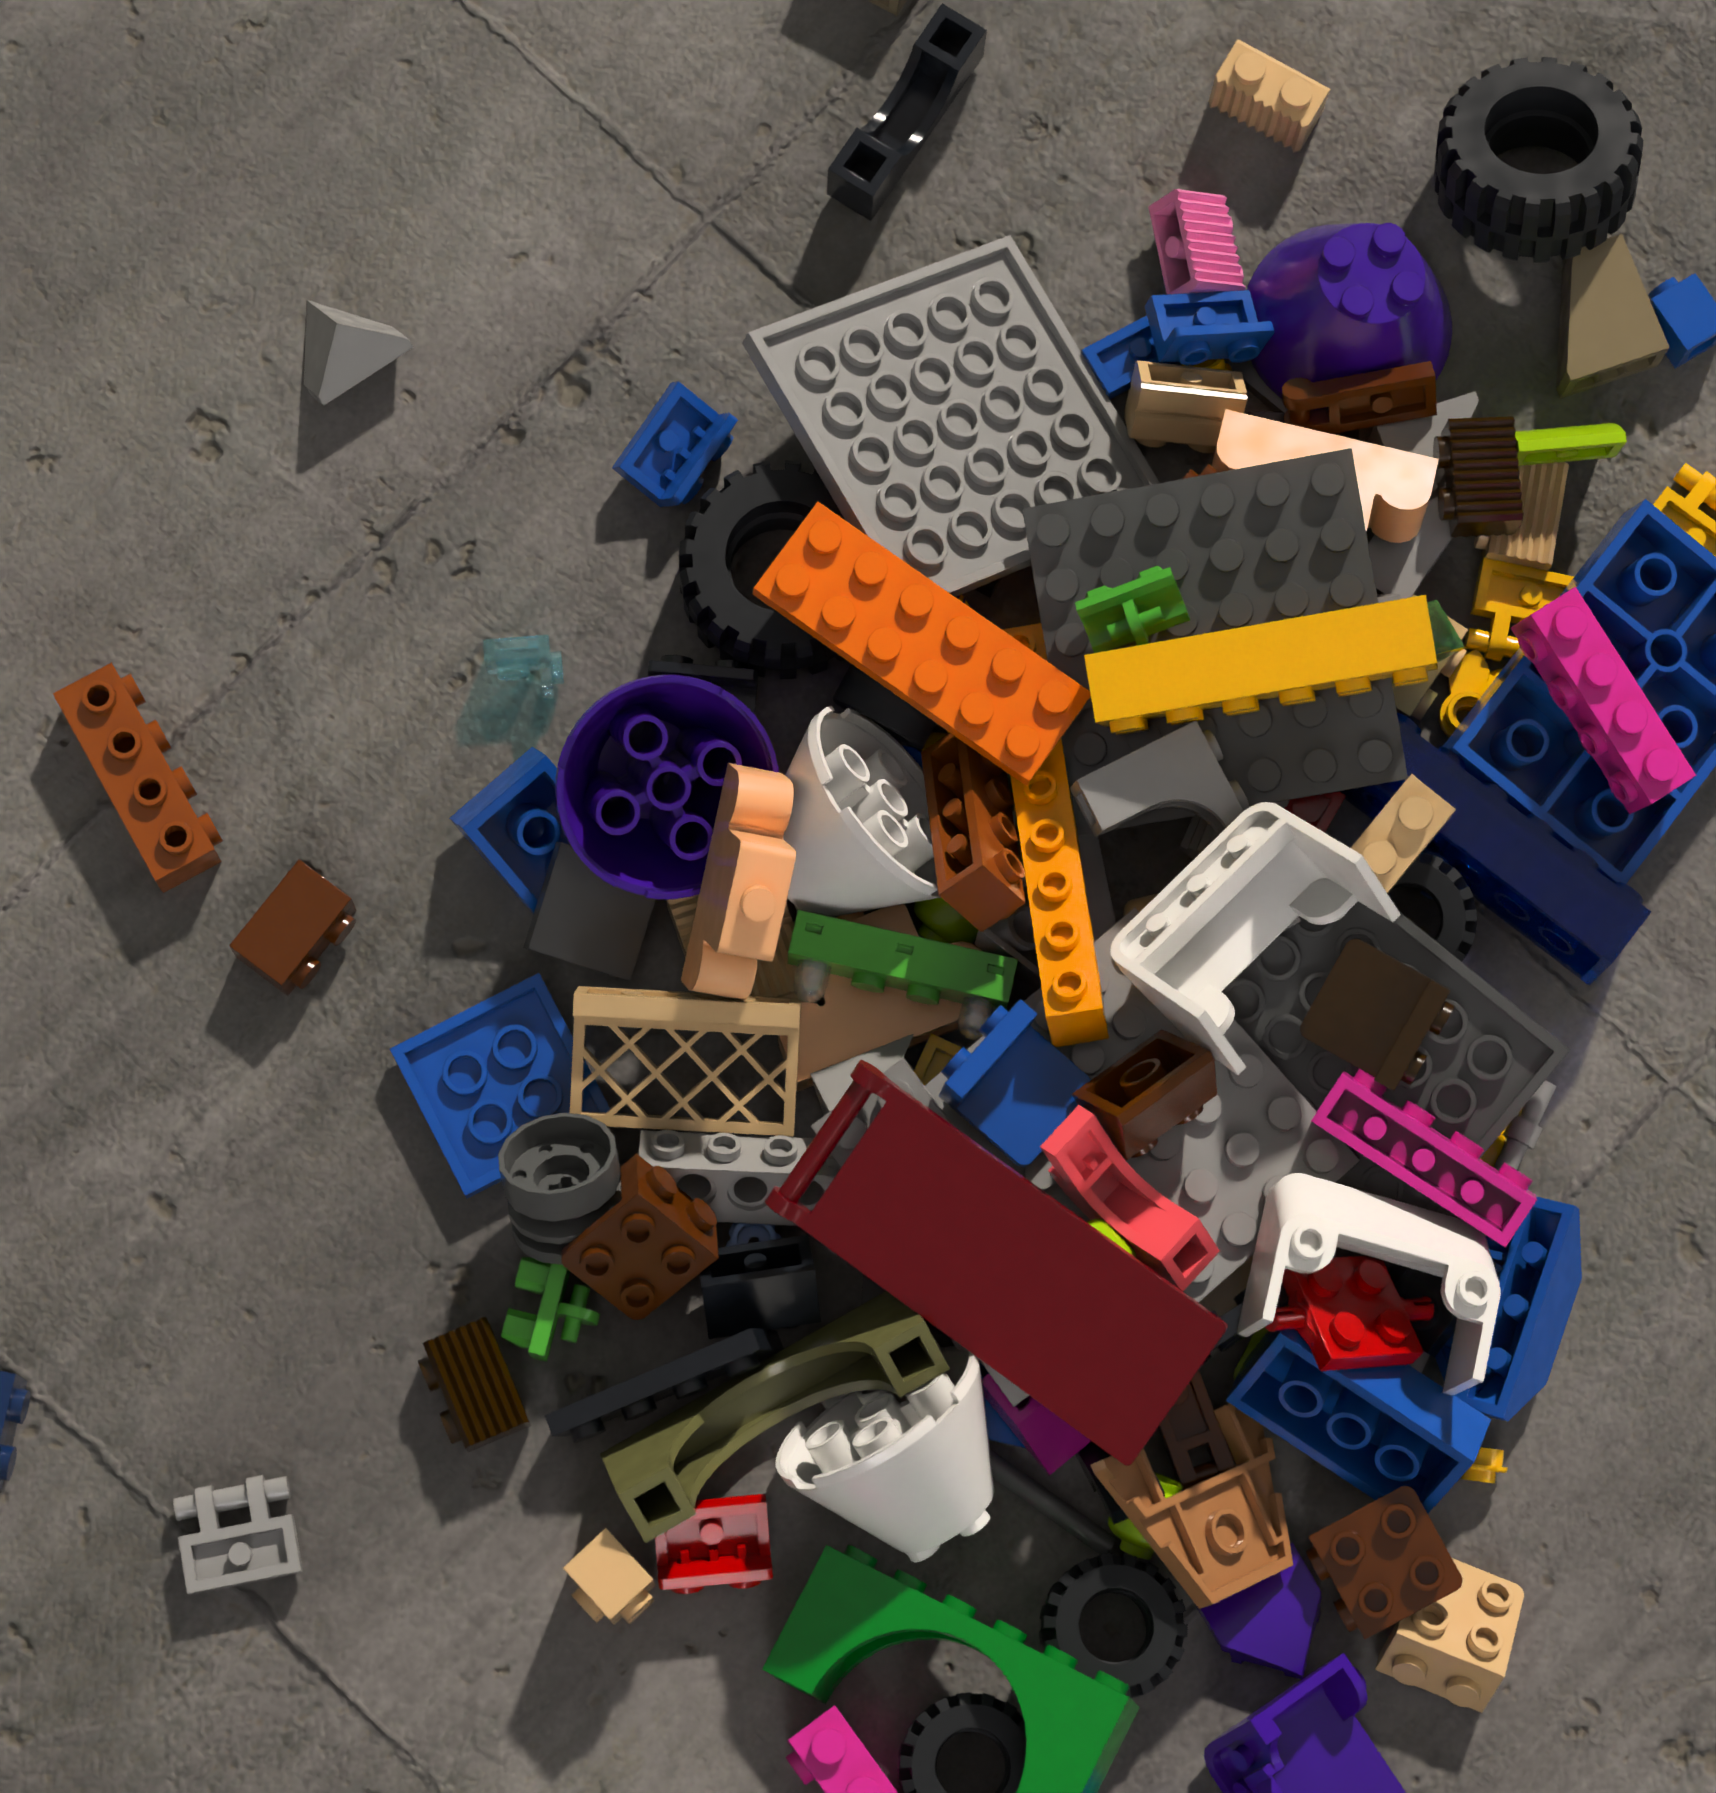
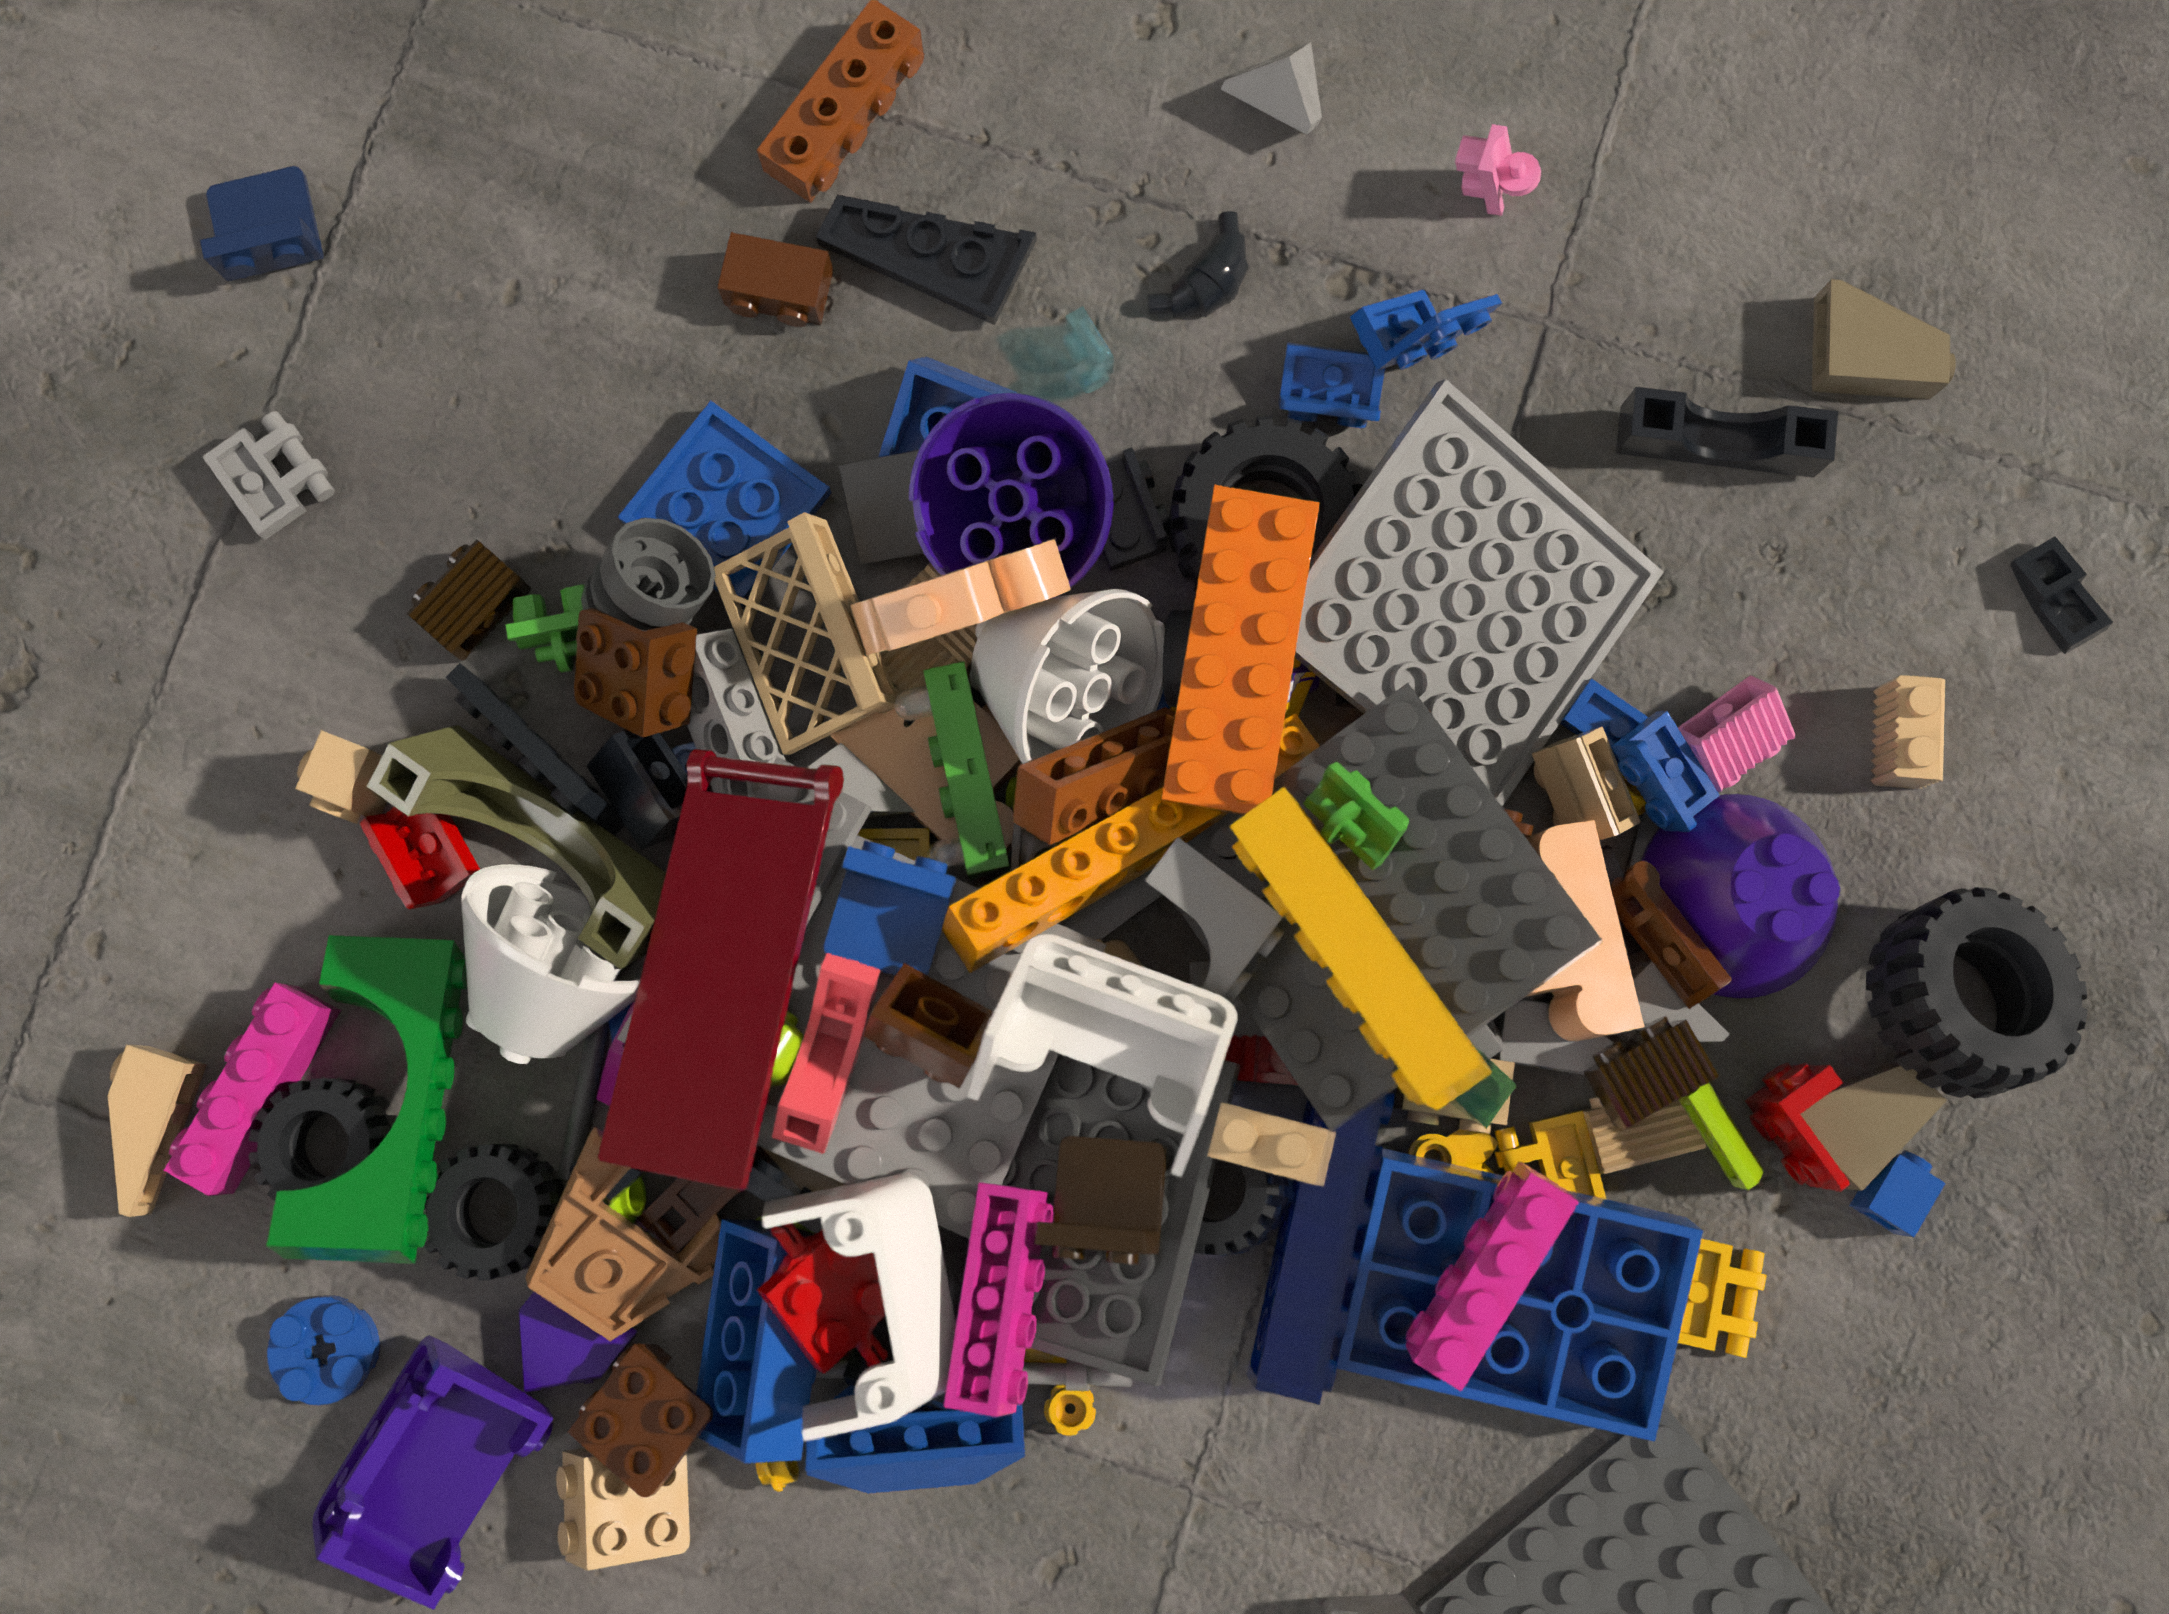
camera: 70 degrees right, 5 degrees up
(352, 756) = (944, 258): none -> black wing
(505, 510) = (1210, 278): none -> black piece
(539, 192) = (1493, 169): none -> bright pink hips
(666, 349) = (1410, 329): none -> blue bracket
(1563, 1161) = (1069, 1423): none -> yellow plate
(1570, 386) = (1778, 1118): none -> red bracket

